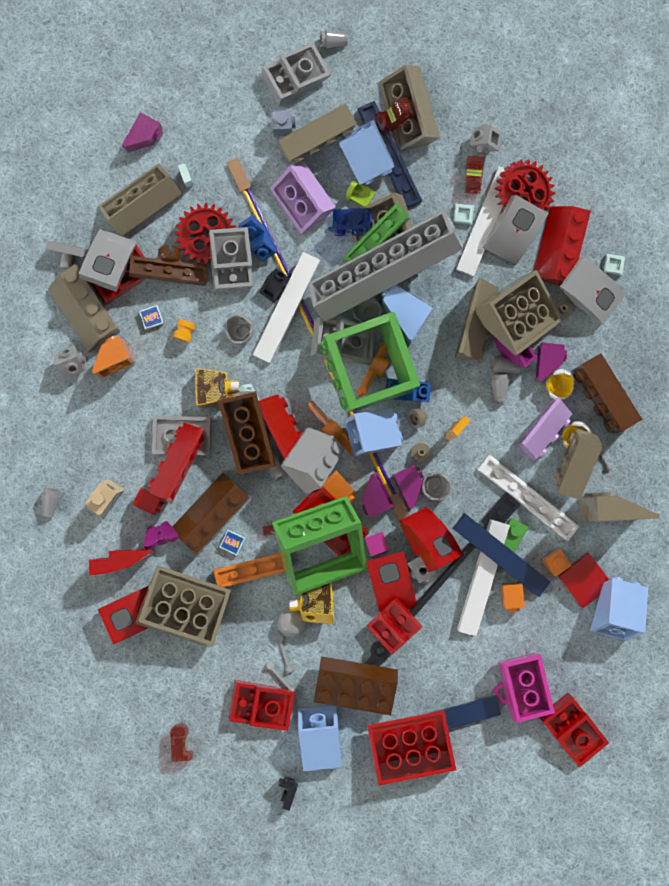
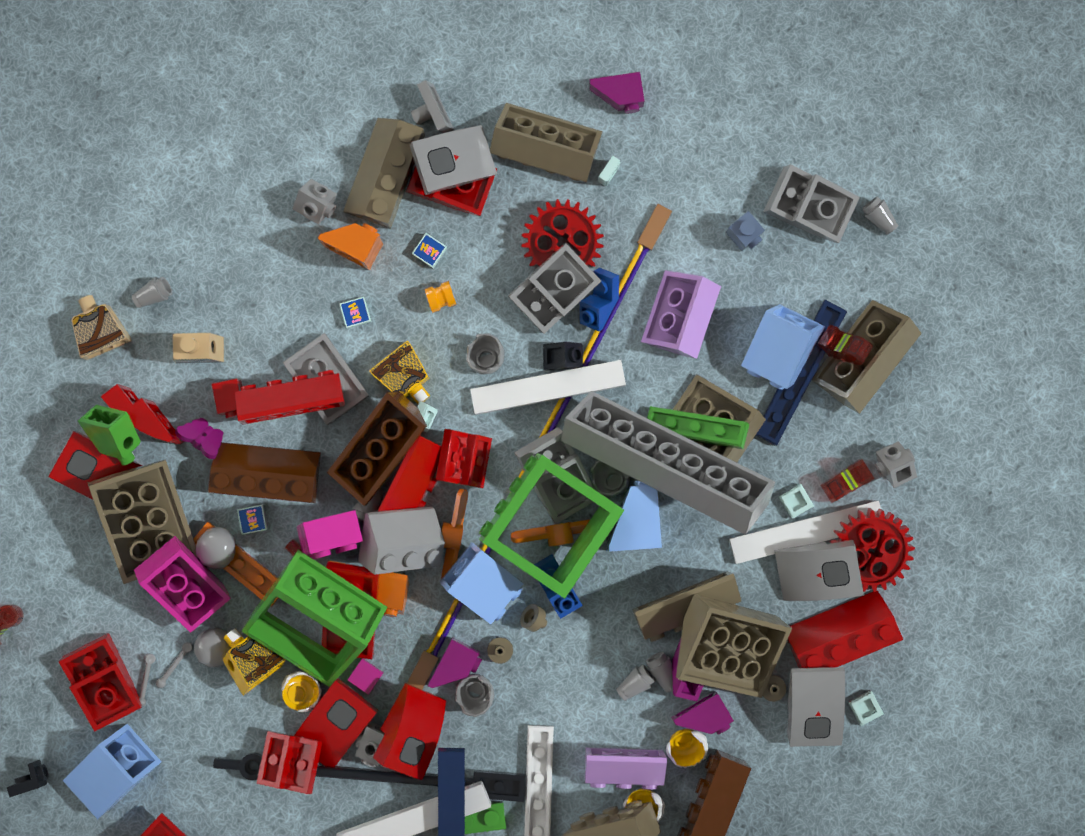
camera: 55 degrees right, 0 degrees up
(46, 550) = (97, 329): none -> torso
(115, 585) = (111, 432): none -> bright green torso
(155, 389) = (355, 312): none -> tile
(168, 268) = (494, 229): reddish brown plate -> none
(233, 575) = (216, 548): none -> light grey hair
(239, 610) = (182, 584): none -> dark pink brick
(277, 498) = (330, 533): none -> dark pink brick
(291, 388) = (463, 458): none -> red slope
(316, 134) = (759, 278): dark tan slope -> none
(351, 221) = (694, 385): clear blue bracket -> none
(356, 685) = (195, 769): reddish brown brick -> none
(357, 588) = (301, 691): none -> yellow hair
(360, 194) = (732, 374): lime tile -> none
(376, 497) = (414, 639): magenta slope -> none
(457, 428) = (549, 672): light orange tile -> none

